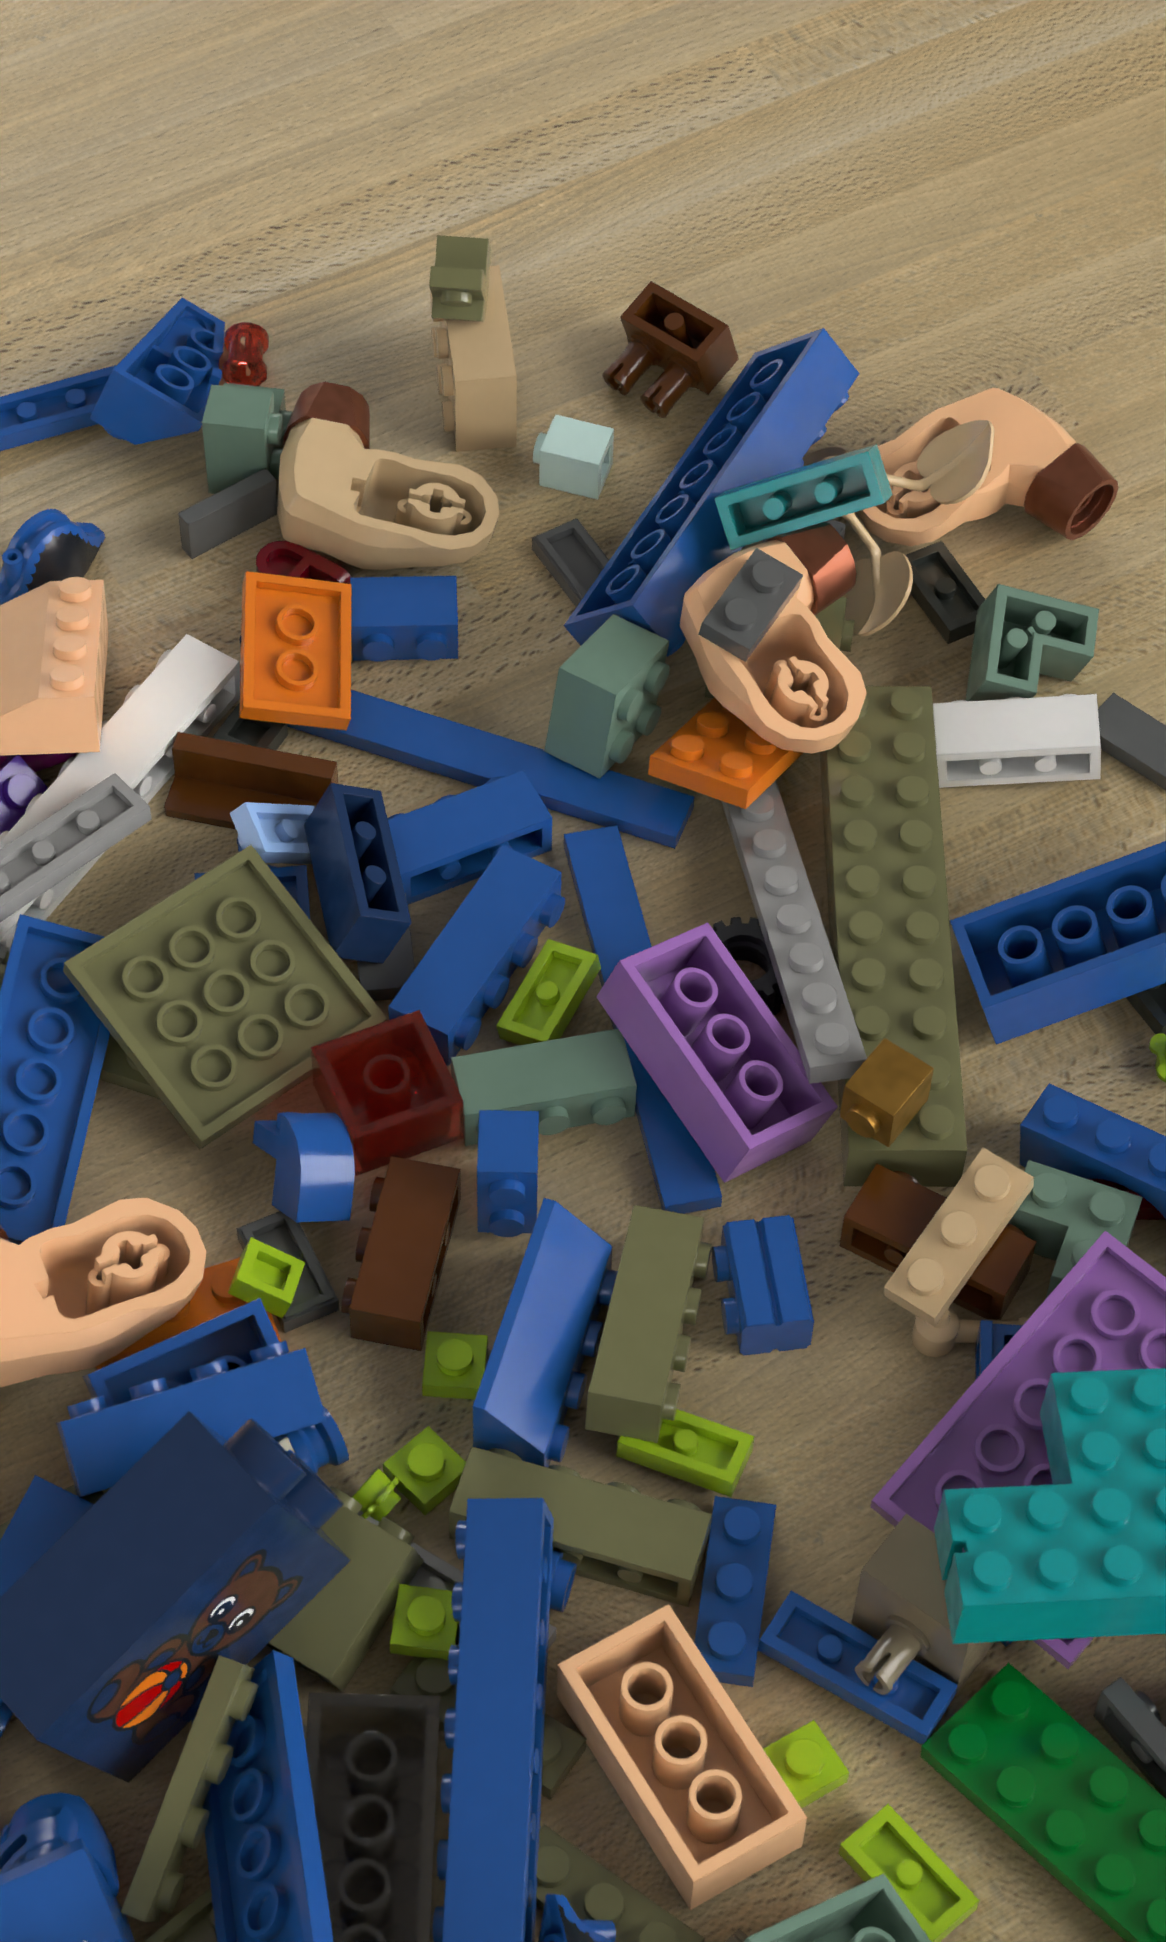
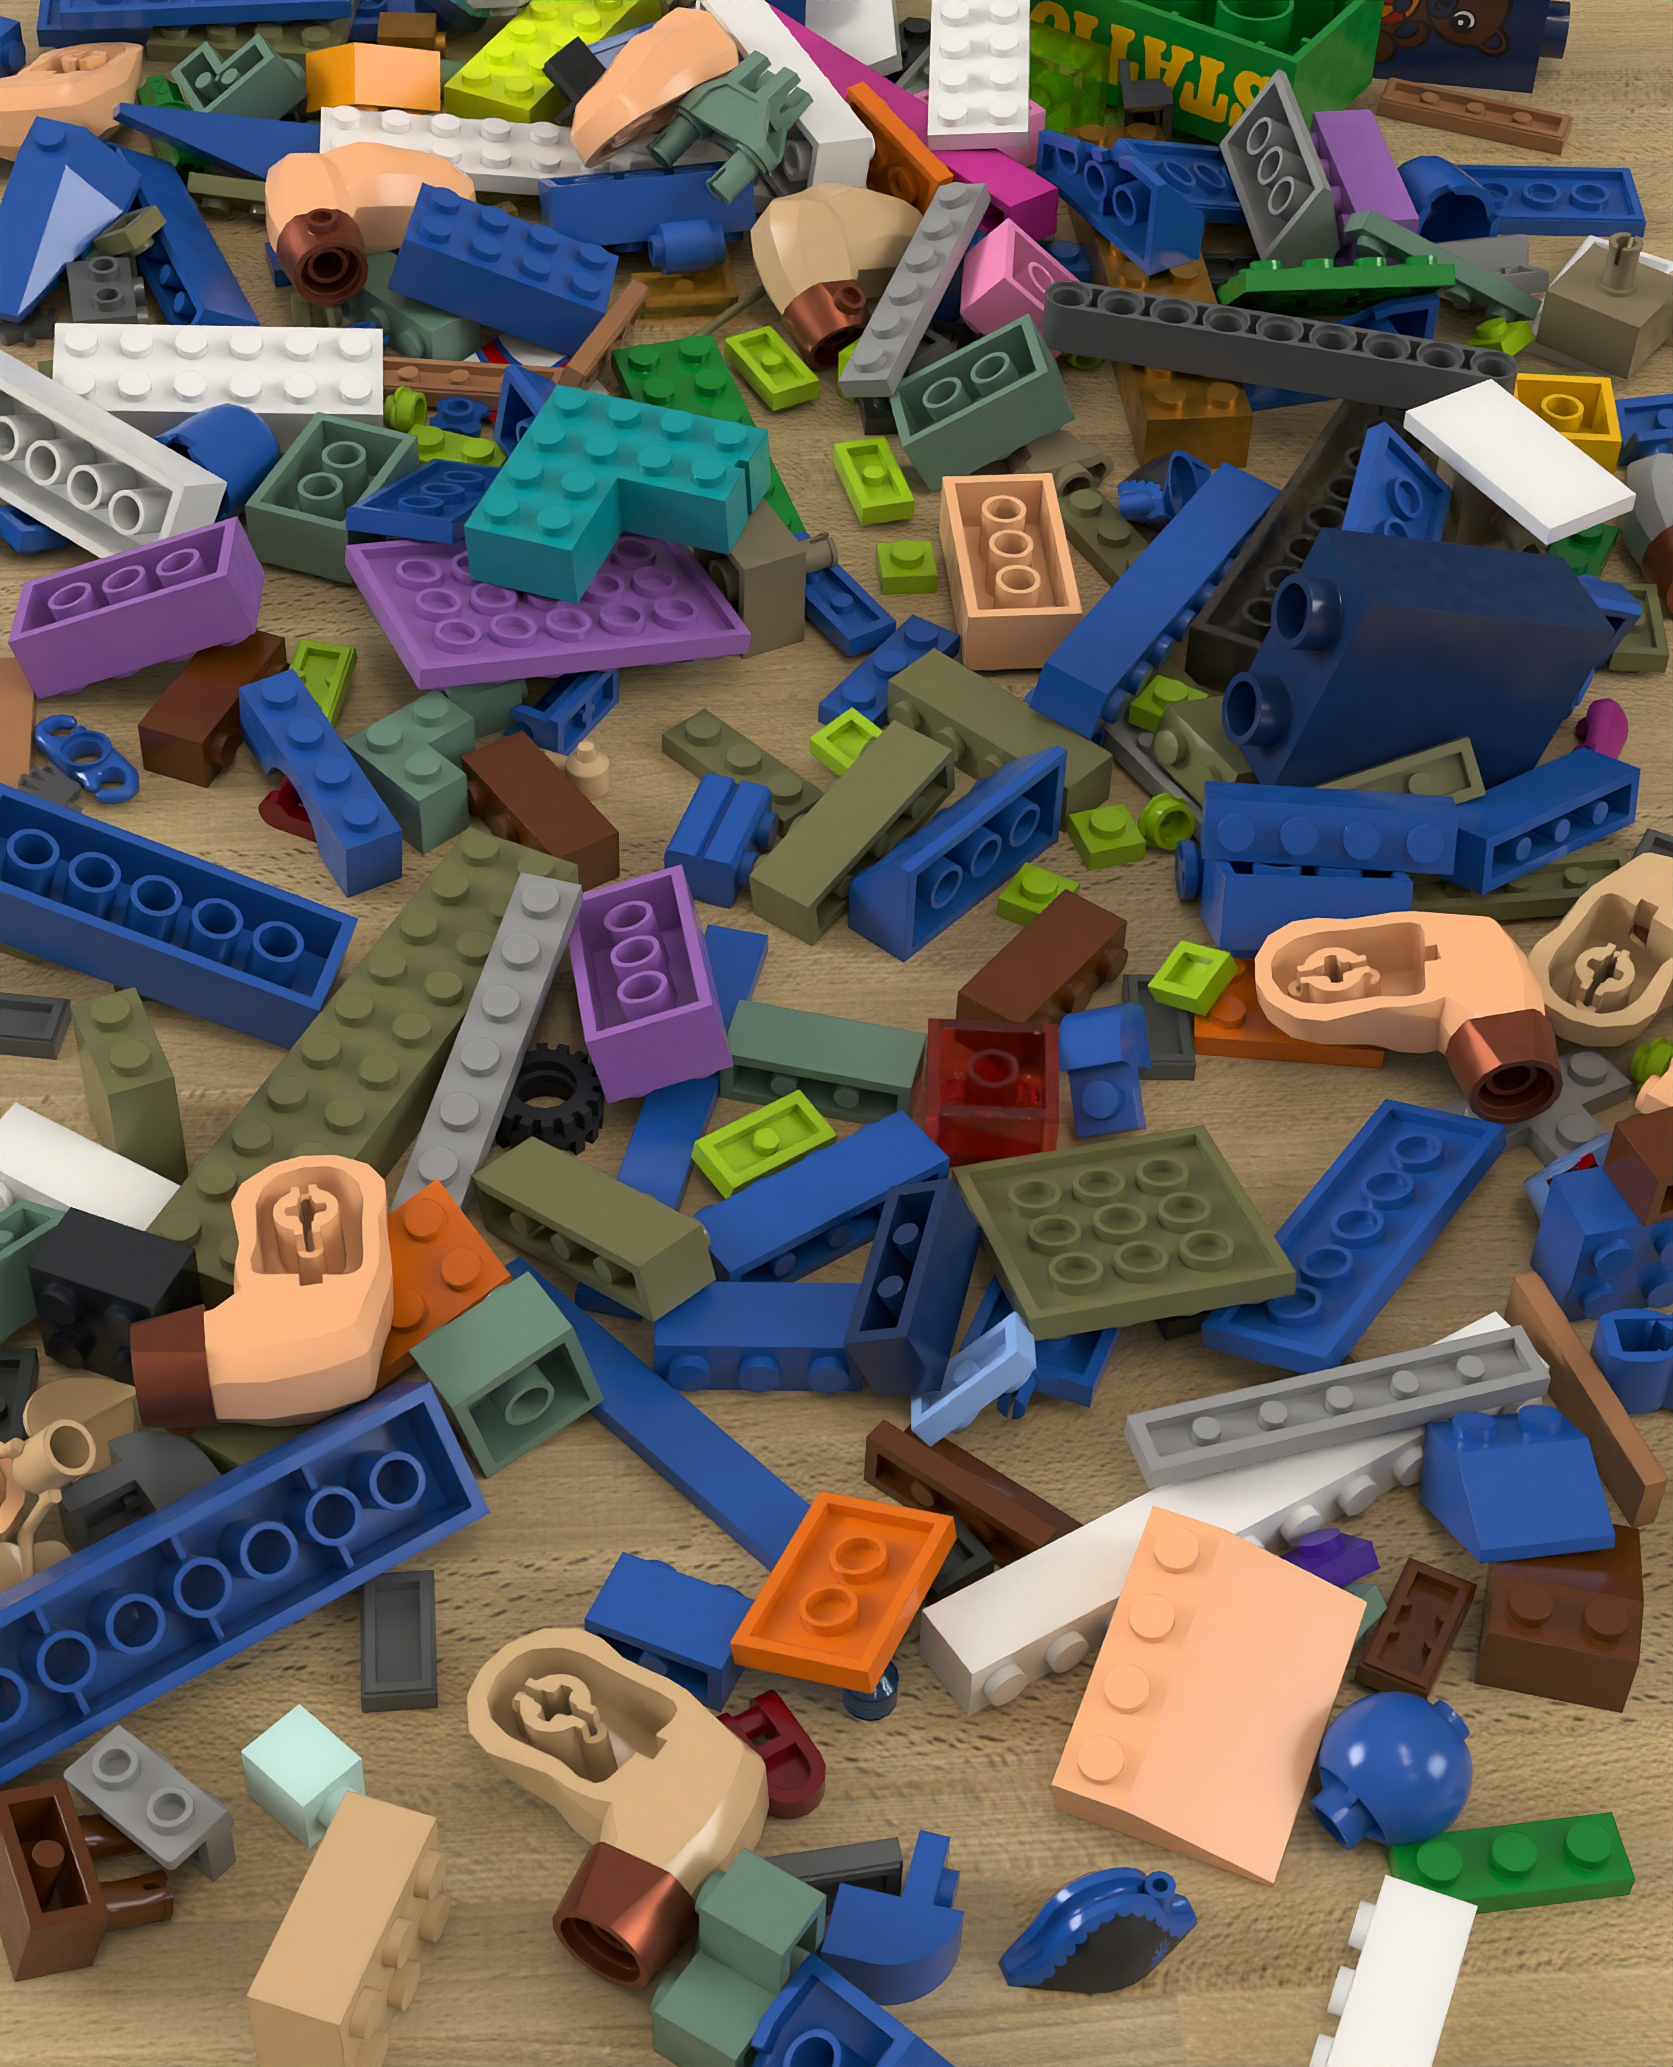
camera: 155 degrees left, 10 degrees down
(157, 497) = (897, 1944): none -> blue brick
(460, 278) = (349, 1921): olive brick -> none
(507, 1172) = (913, 965): blue brick -> none
(623, 834) = (594, 1228): none -> olive brick
(647, 398) = (154, 1804): none -> light grey bracket
(750, 604) = (308, 1277): dark grey plate -> none
(800, 1400) = (711, 746): none -> olive plate
(803, 497) = (134, 1393): teal brick -> none
(886, 1093) = (523, 839): pearl gold brick -> none
(915, 644) = (98, 1281): none -> black brick
(958, 1237) = (532, 763): tan plate -> none
(1030, 794) = (129, 1083): none -> olive brick

